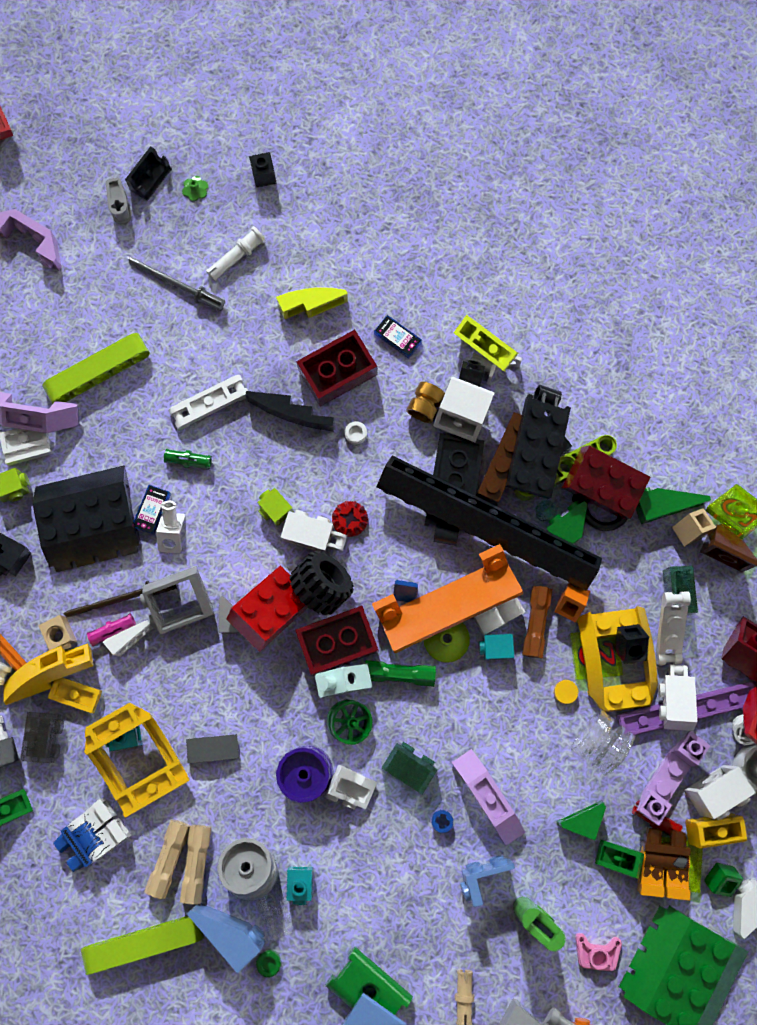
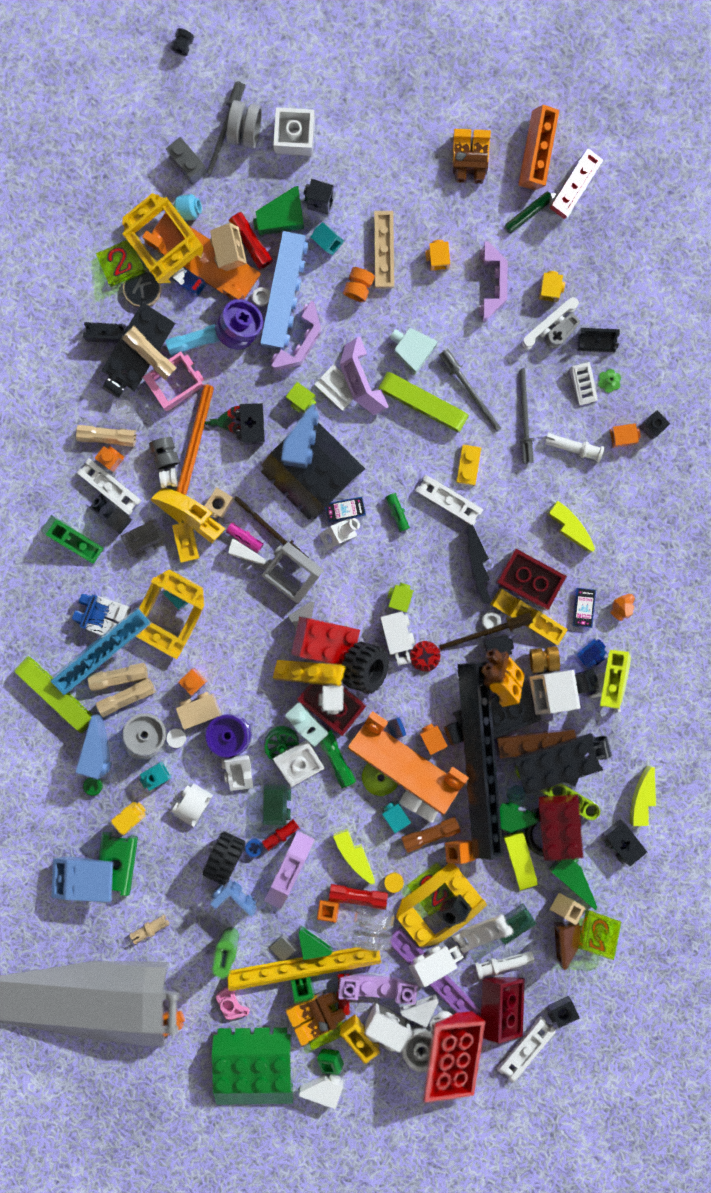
camera: 60 degrees right, 10 degrees up
(37, 347) = (413, 348): none -> light aqua torso
(45, 504) = (298, 443): none -> medium blue slope
(69, 186) = (551, 286): none -> yellow brick
(84, 320) = (454, 367): none -> dark grey piece
(103, 216) = (555, 318): none -> white plate
(125, 859) = (99, 651): none -> dark azure slope
(173, 201) = (575, 379): none -> white slope
(187, 363) = (468, 465): none -> yellow plate
(212, 748) = (207, 660): dark grey slope -> none
(224, 778) = (192, 681): none -> orange brick
(255, 202) = (624, 435): none -> orange brick
(258, 791) = (198, 711): none -> tan brick
(273, 834) = (176, 738): none -> white tile
(290, 645) = (308, 672): none -> yellow plate
(326, 942) = (129, 817): none -> yellow brick
(331, 635) = (331, 699): none -> white brick
(356, 862) = (192, 805): none -> white cylinder
(369, 411) = (512, 623): none -> dark brown piece
(373, 394) = (542, 624): none -> yellow slope
(380, 715) = (298, 763): none -> white tile
(386, 440) = (500, 643): none -> black brick
(417, 448) = (502, 676): none -> hips
(419, 298) = (623, 607): none -> orange rock
(433, 861) = (223, 858): none -> black tyre
(438, 560) = (433, 738): none -> orange brick
(445, 783) = (280, 835): none -> red pin
(447, 354) = (592, 652): none -> clear blue brick
(512, 716) = (354, 855): none -> neon yellow slope
(550, 751) = (343, 894): none -> red axle
(557, 781) = (328, 911): none -> orange slope
(569, 856) = (283, 947): none -> light grey slope
(602, 850) = (300, 968): none -> yellow tile
(616, 545) = (520, 860): none -> neon yellow slope
(621, 389) = (643, 797): none -> neon yellow slope
(667, 426) = (634, 849): none -> black brick
(714, 638) = (496, 966): none -> white pin
(721, 744) = (422, 1011): none -> white slope

